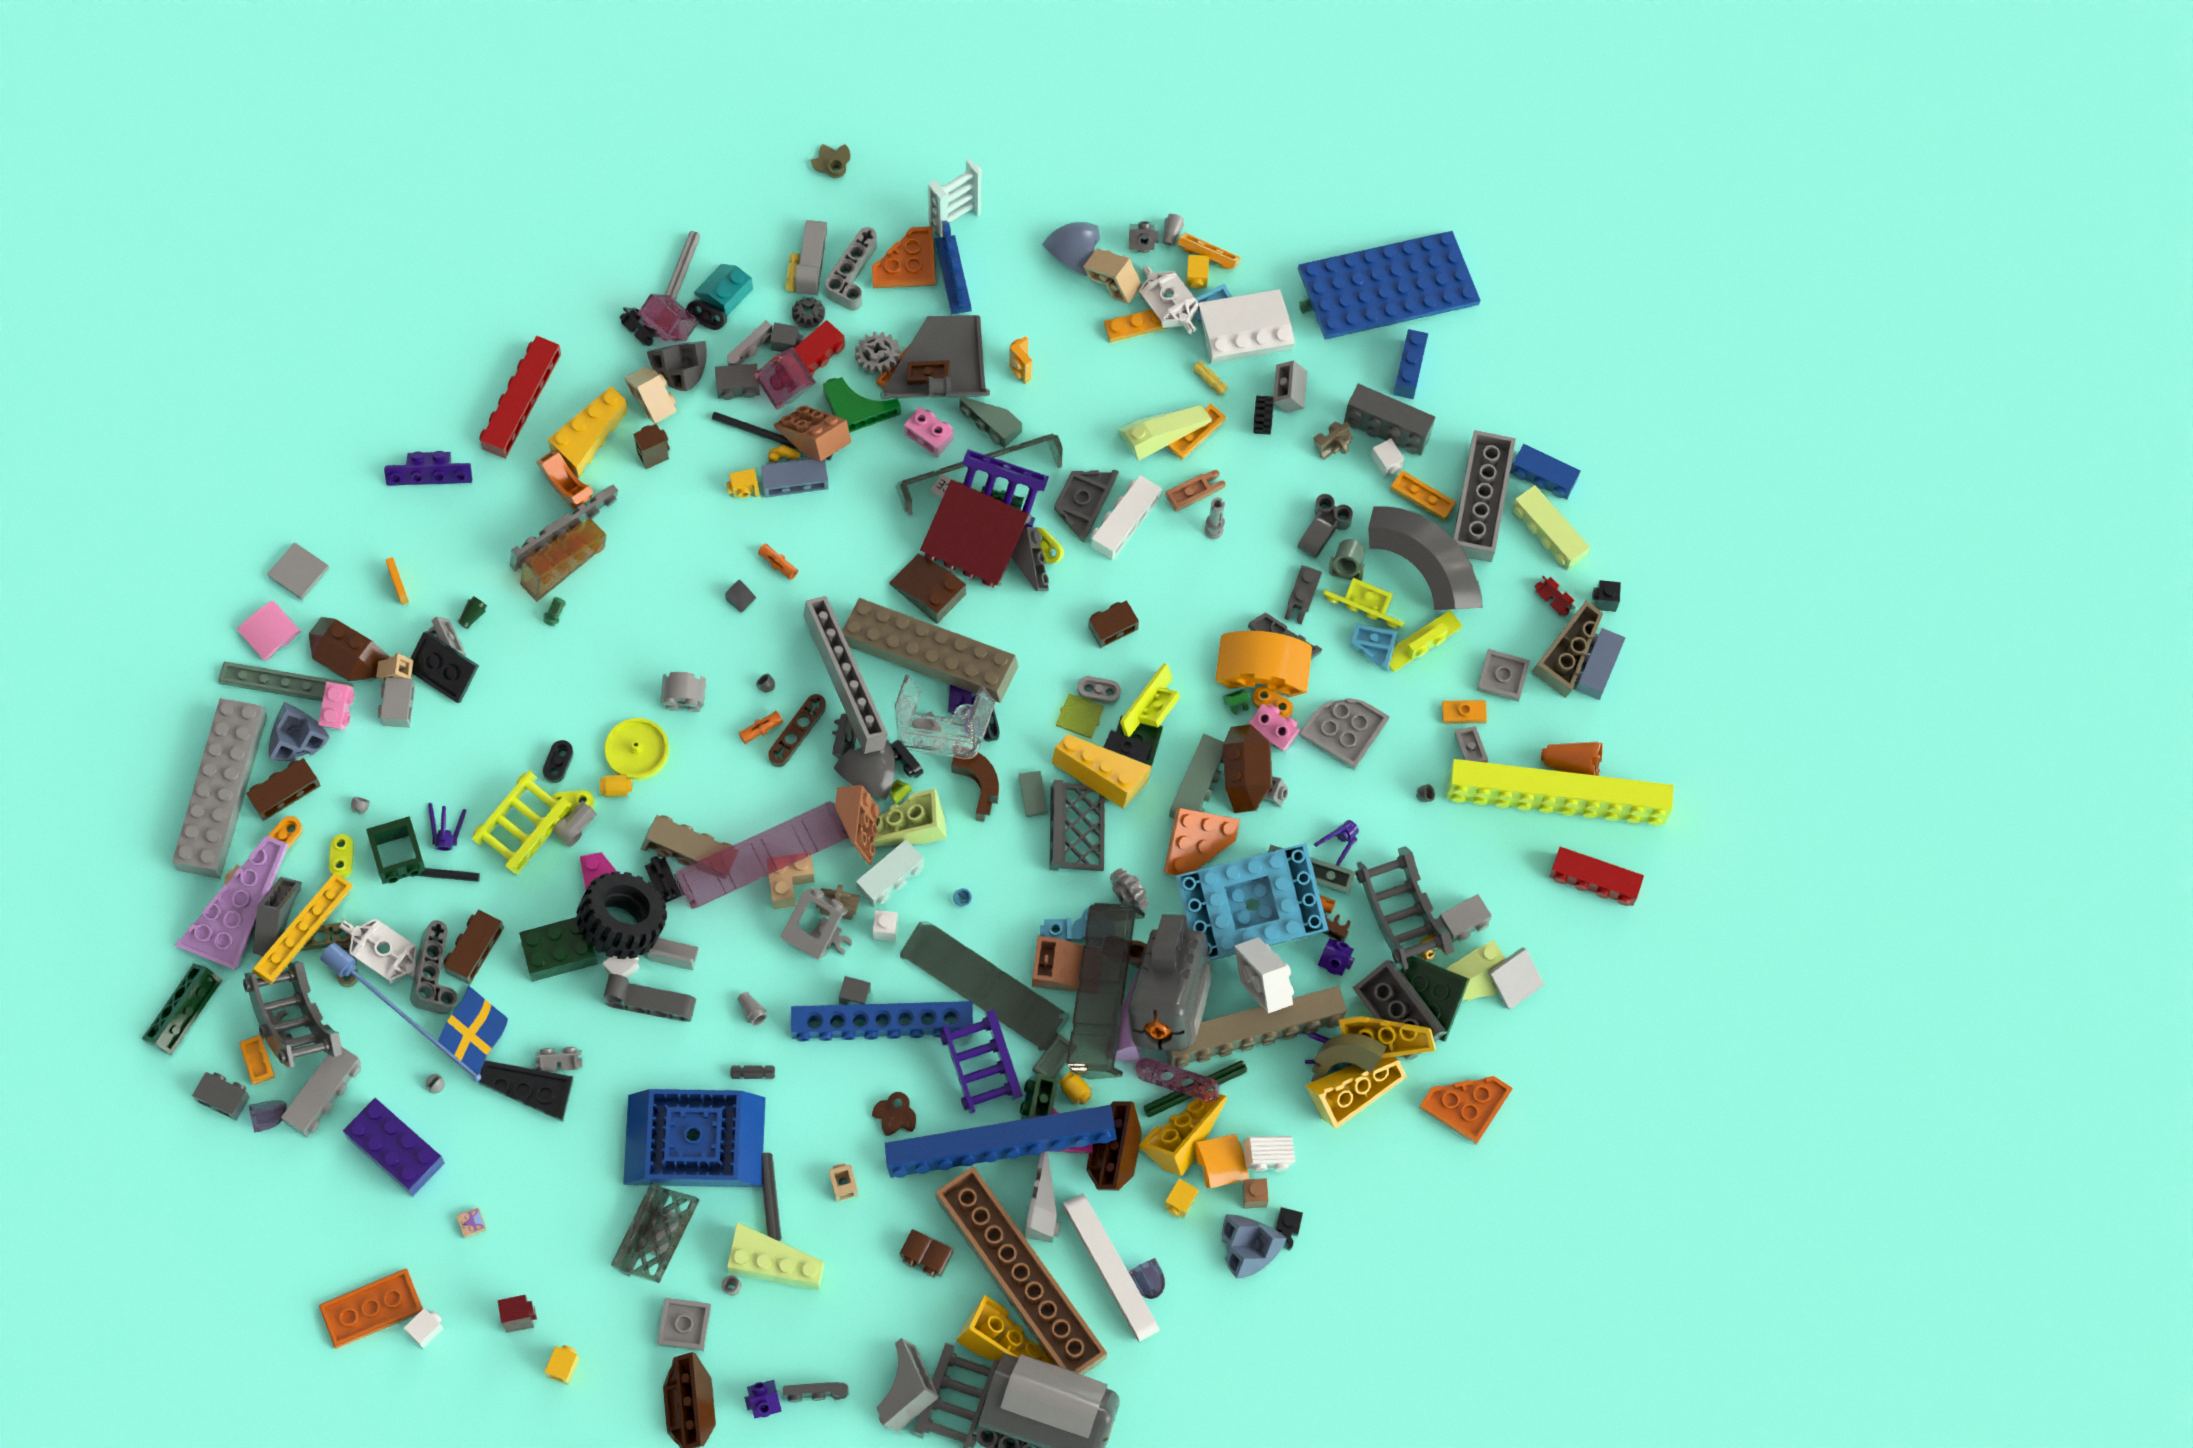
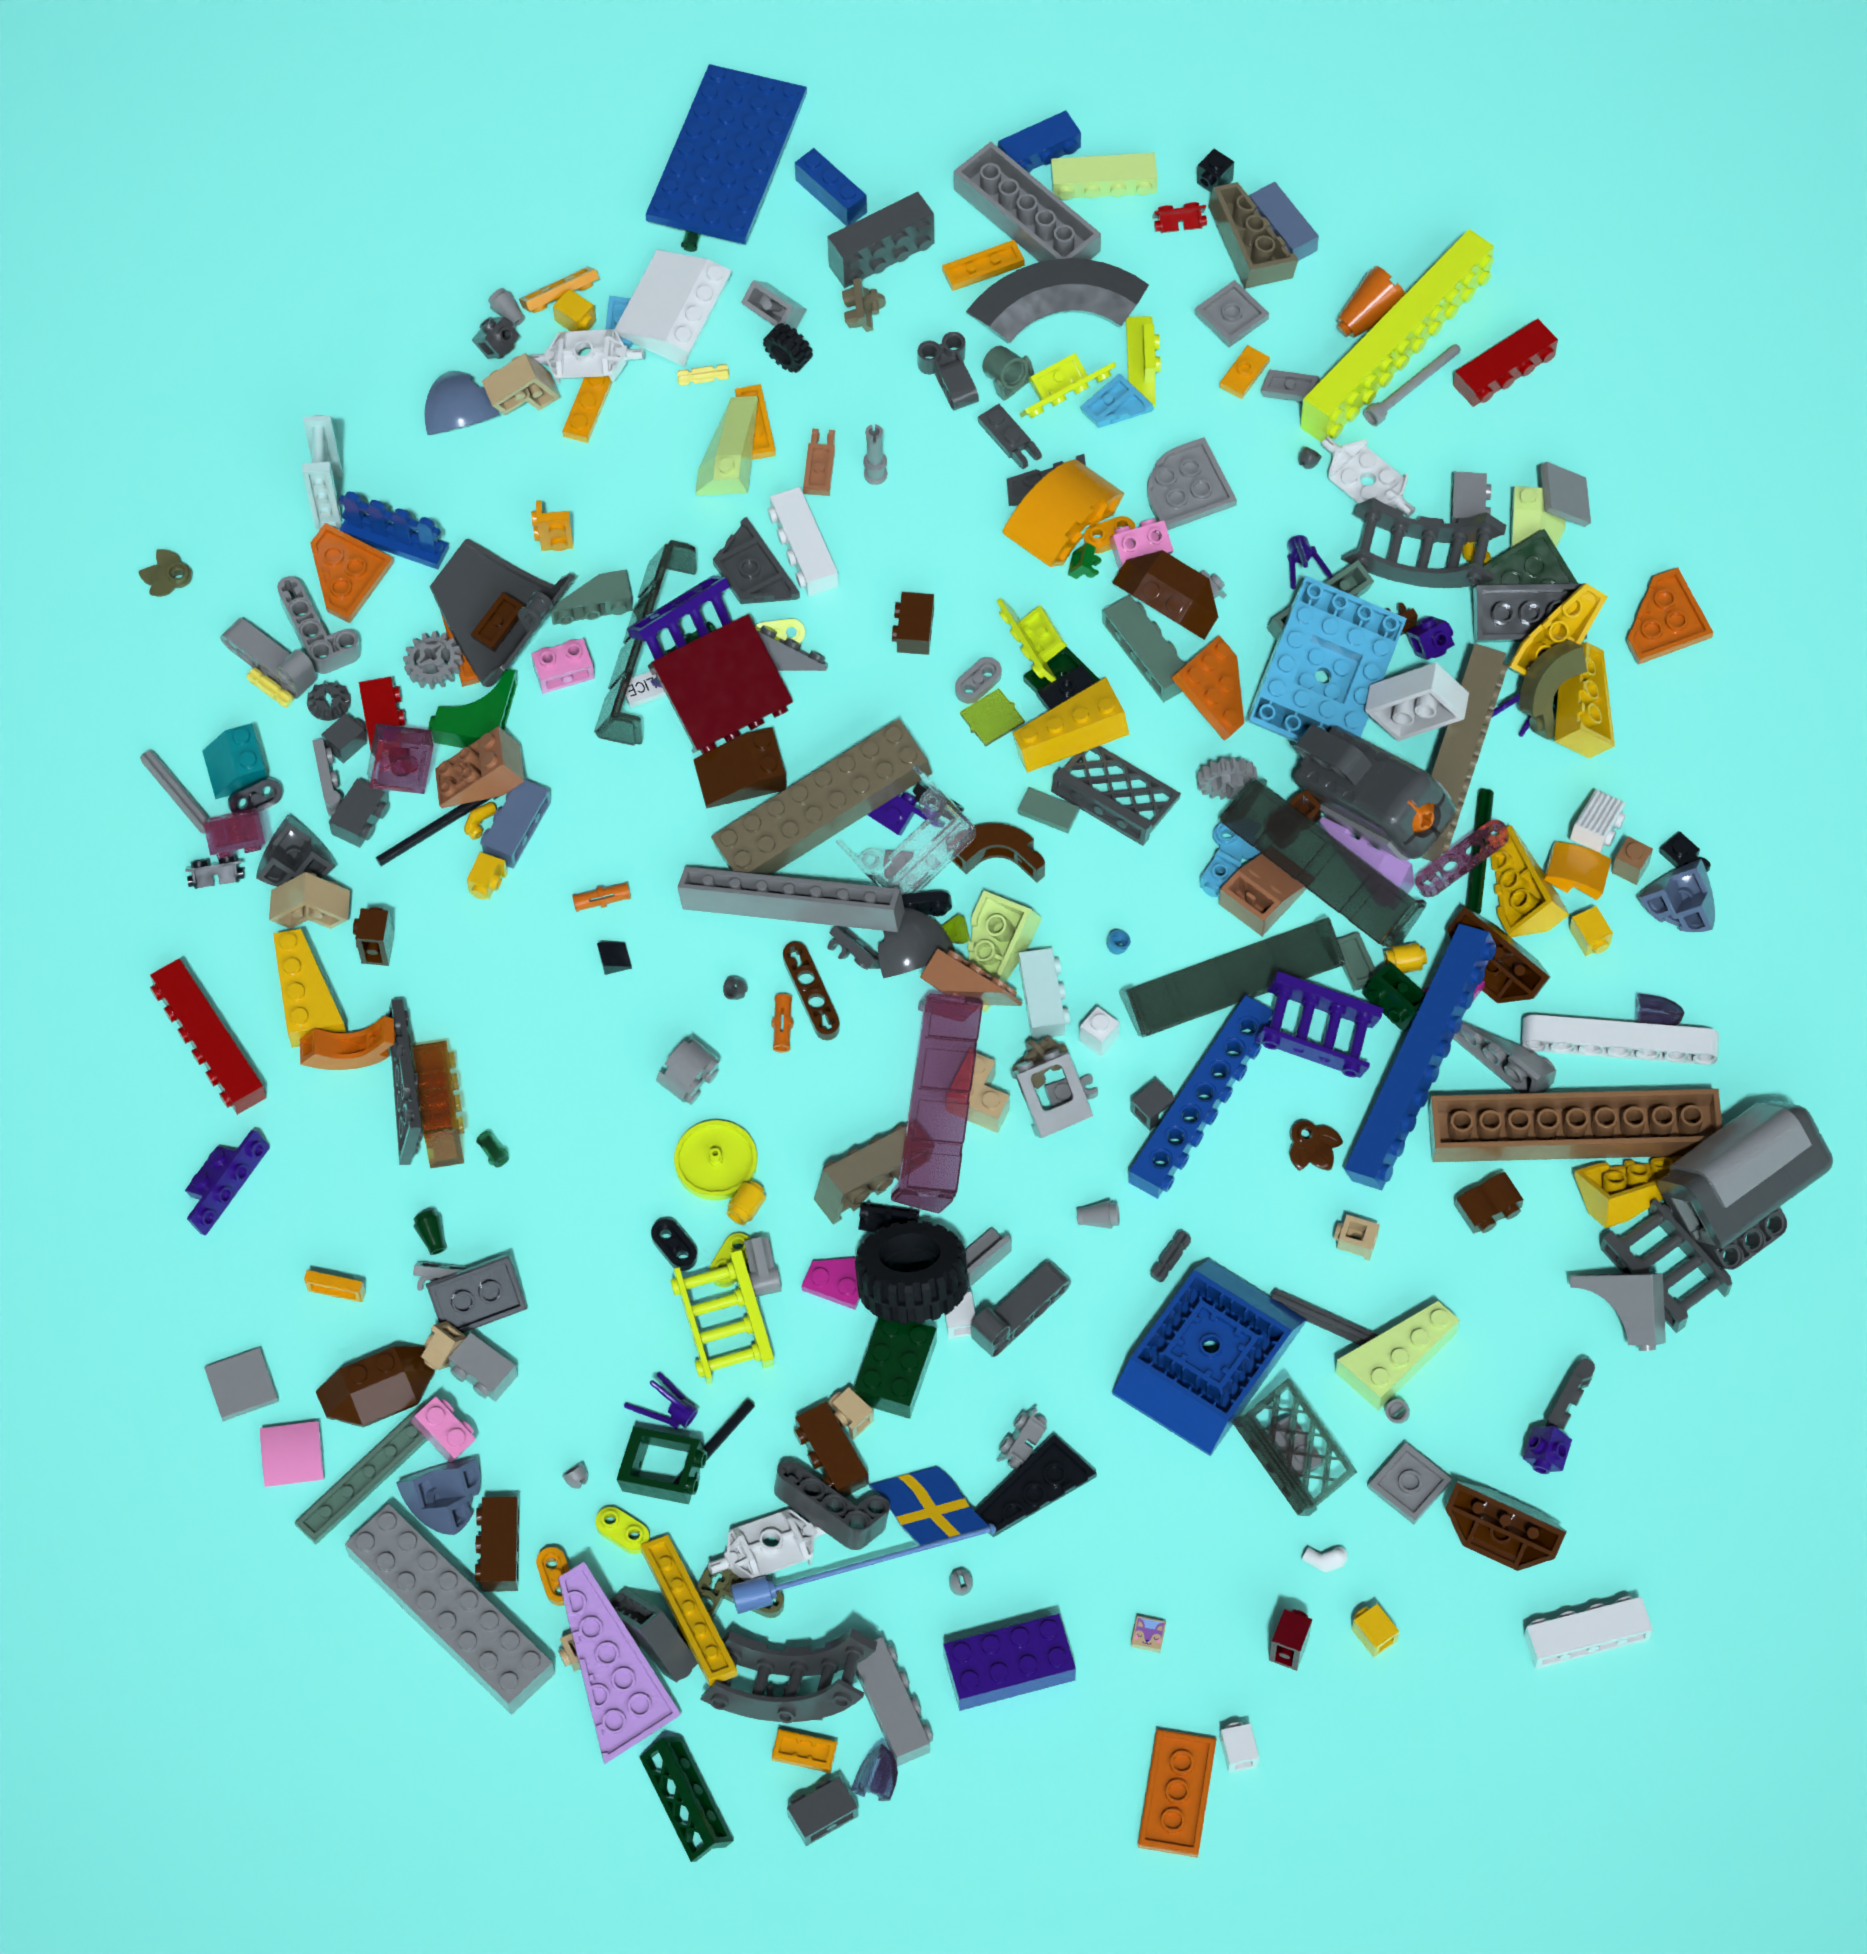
camera: 50 degrees left, 5 degrees down
(508, 942) = (851, 1412): none -> tan brick
(594, 1305) = (1328, 1561): none -> white arm
(1387, 458) = (918, 270): white brick -> none
(1441, 825) = (1357, 461): none -> white plate
(1495, 816) = (1376, 413): none -> light grey piece

